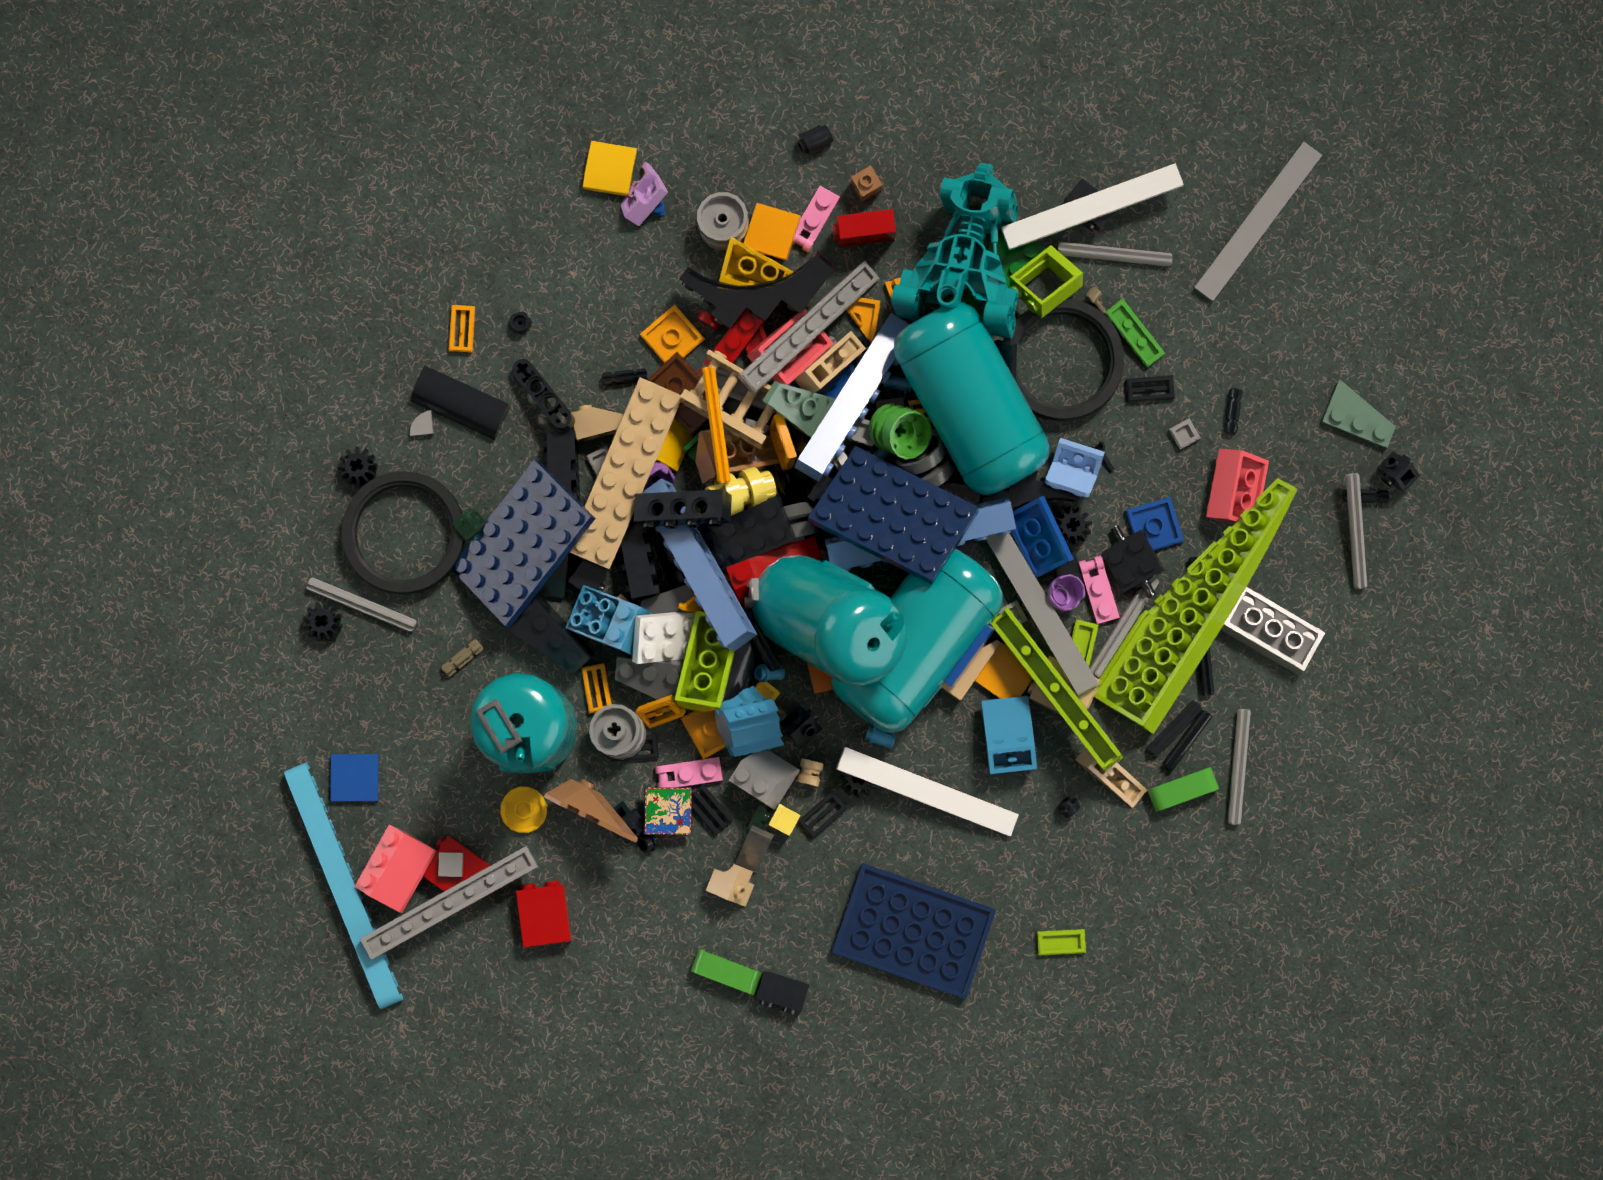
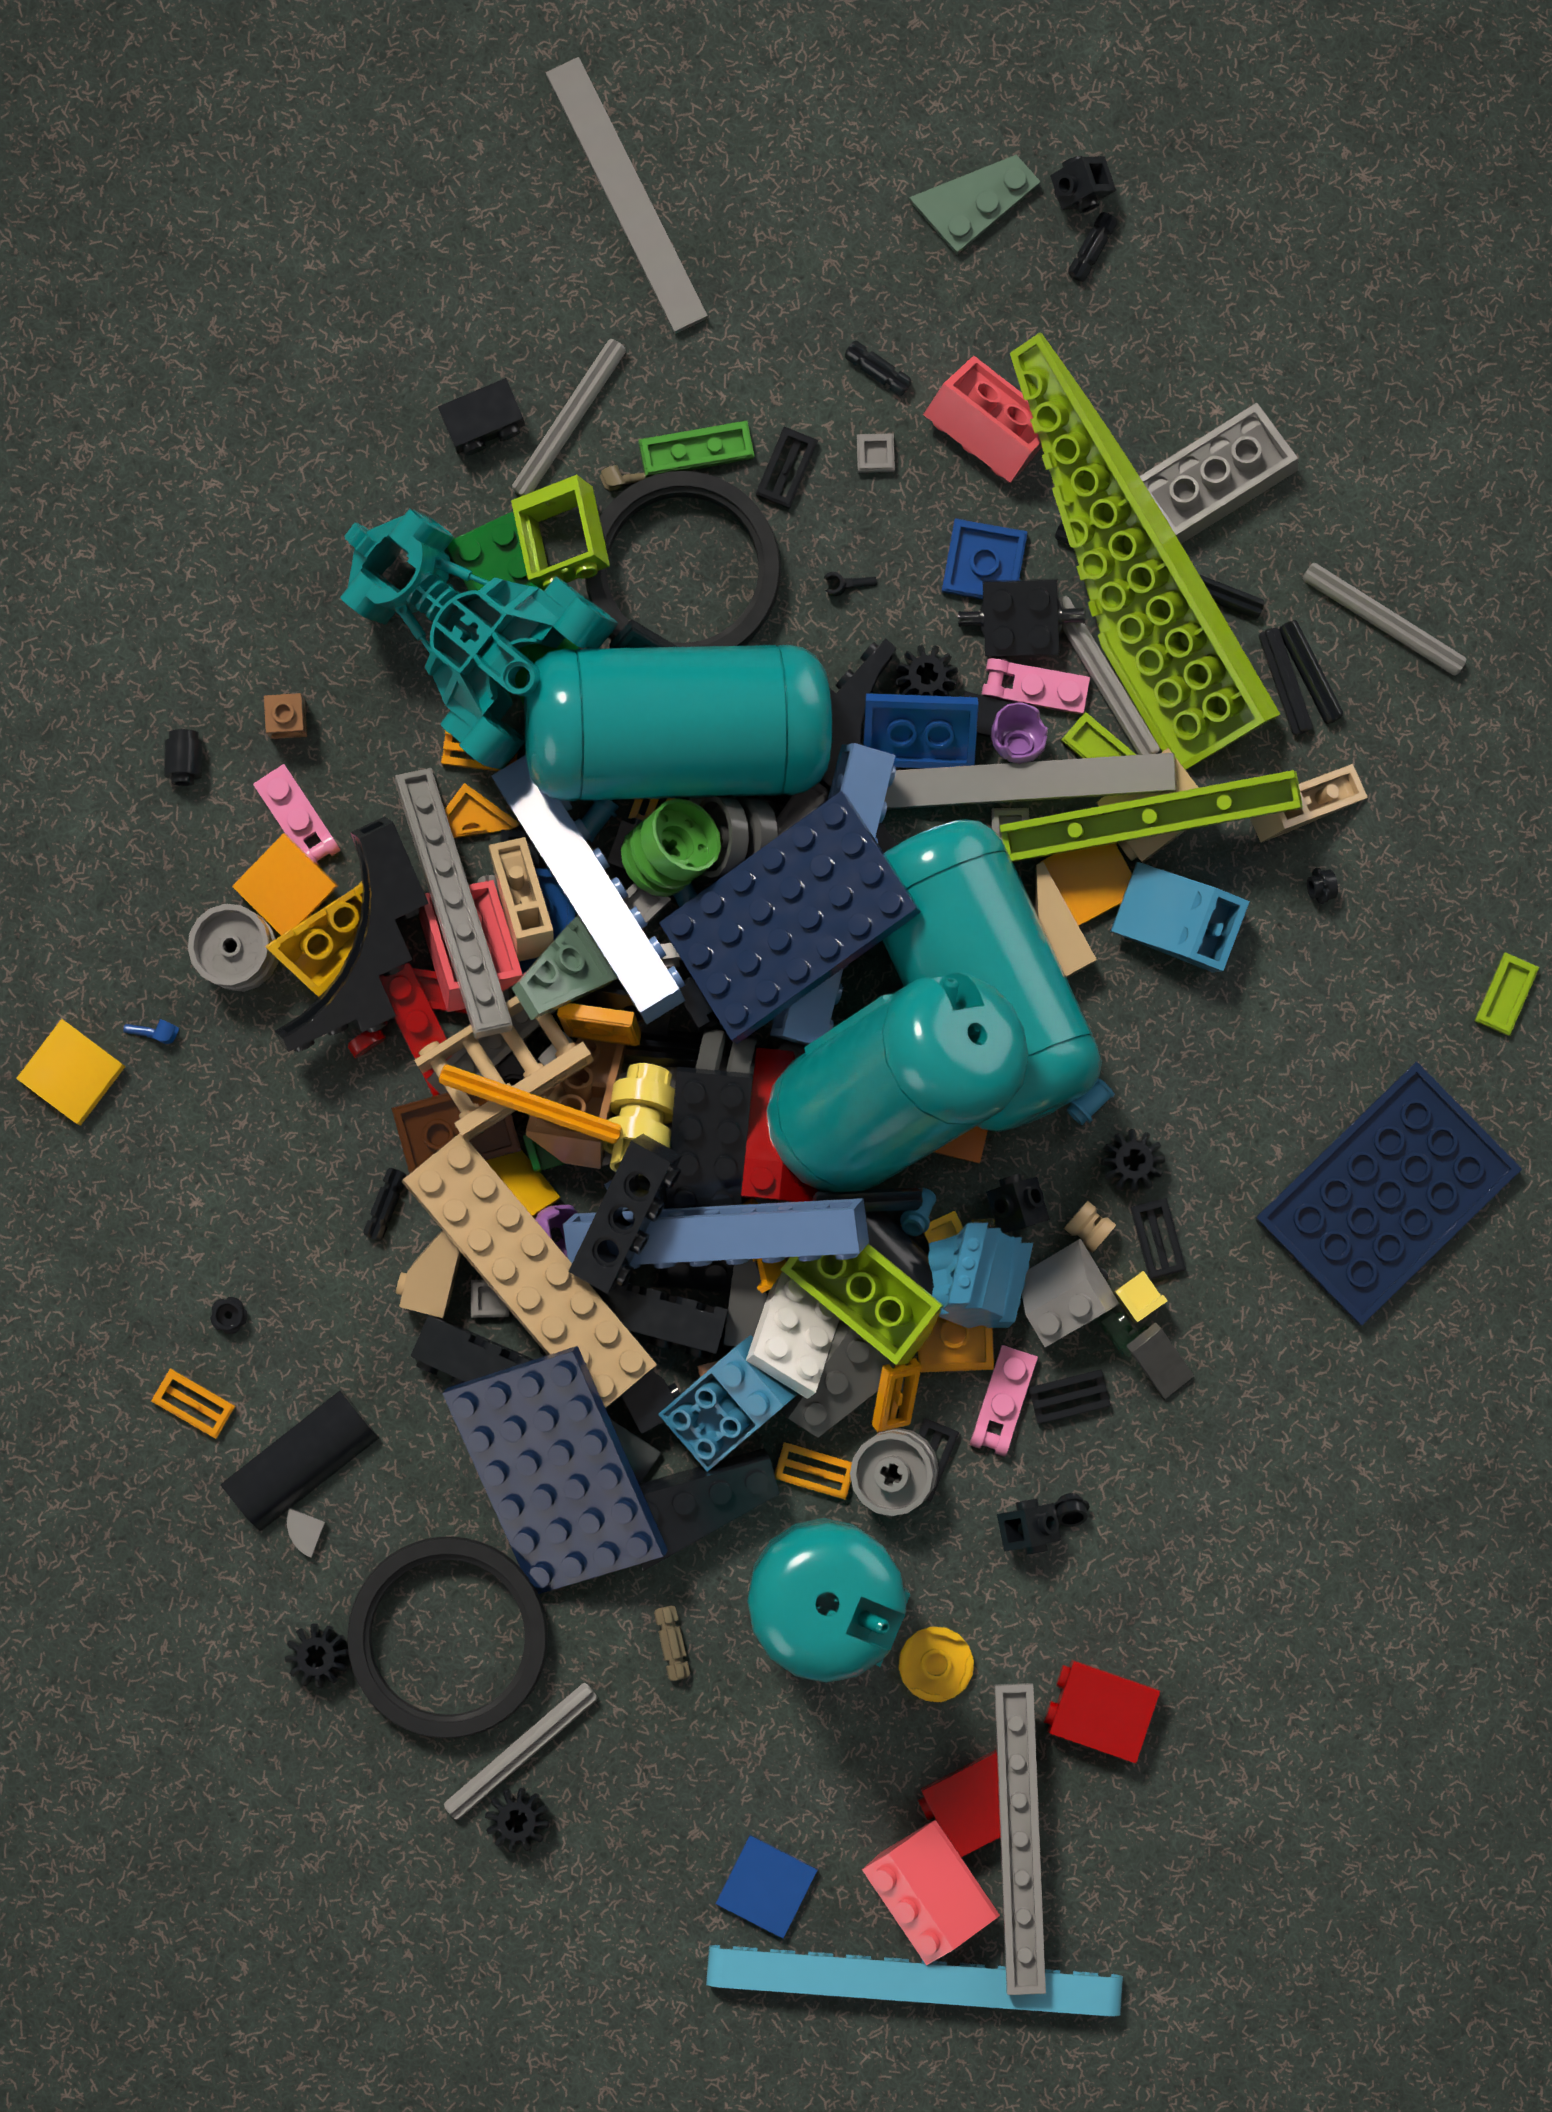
camera: 65 degrees left, 0 degrees up
(451, 864) = (965, 1808): light grey tile -> none
(469, 523) = (484, 1534): clear green bracket -> none
(511, 742) = (855, 1630): flat silver tile -> none
(541, 396) = (352, 1333): black beam -> none
(591, 805) = (983, 1563): medium nougat wedge -> none
(643, 196) = (136, 1043): lavender slope -> none
(667, 811) = (1043, 1457): tile -> none
(671, 334) = (360, 1105): light orange tile -> none
(726, 972) = (1314, 1490): bright green beam -> none
(732, 884) = (1195, 1419): tan brick -> none
(753, 595) = (799, 1175): light grey tile -> none
(782, 992) = (1383, 1423): black brick -> none
(864, 228) = (350, 750): red brick -> none
(927, 791) = (1201, 1074): white tile -> none
(969, 656) = (1042, 913): blue tile -> none
(1074, 468) = (847, 630): light blue bracket -> none
(1092, 206) = (487, 414): white tile -> none
(1183, 789) = (1379, 713): bright green beam -> none
(1356, 530) = (1136, 284): light grey axle -> none

